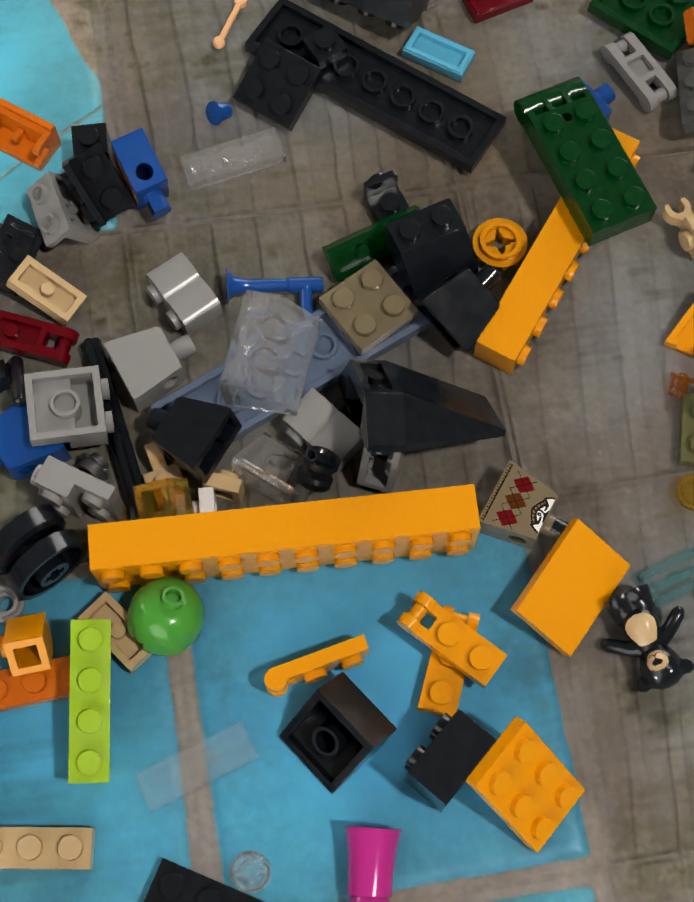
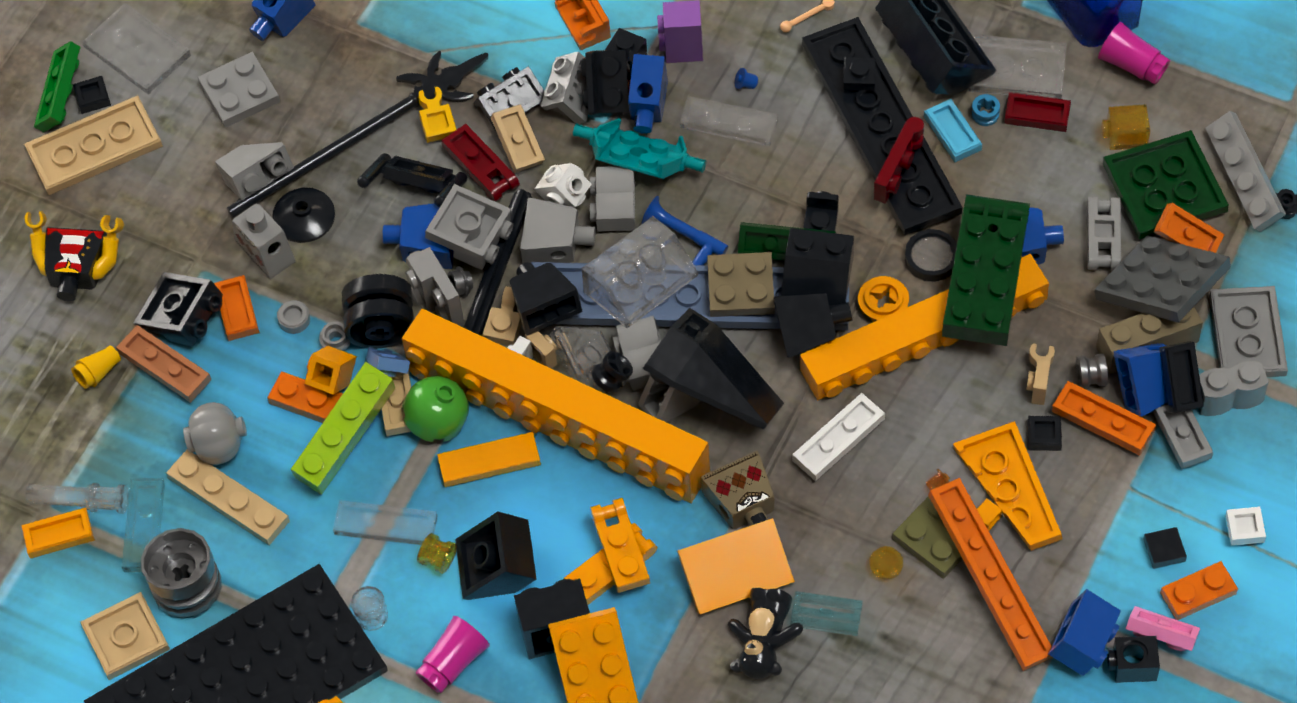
camera: 40 degrees right, 10 degrees down
(83, 599) = (387, 362): none -> medium blue plate
(127, 311) = (563, 185): none -> white brick
(133, 96) = (681, 31): none -> medium lavender brick
(163, 498) = (489, 323): clear yellow brick -> none
(174, 236) = (638, 152): none -> teal plate
(252, 631) = (489, 459): none -> light orange tile
(275, 766) = (436, 553): none -> clear yellow wheel
(278, 84) = (803, 83): black plate -> none
(315, 665) = (537, 510): light orange plate -> none
(424, 104) = (898, 159): none -> dark red plate
(447, 13) = (988, 102): none -> dark azure bush
(510, 177) = (930, 255): none -> piece
(562, 398) = (838, 436): none -> white plate

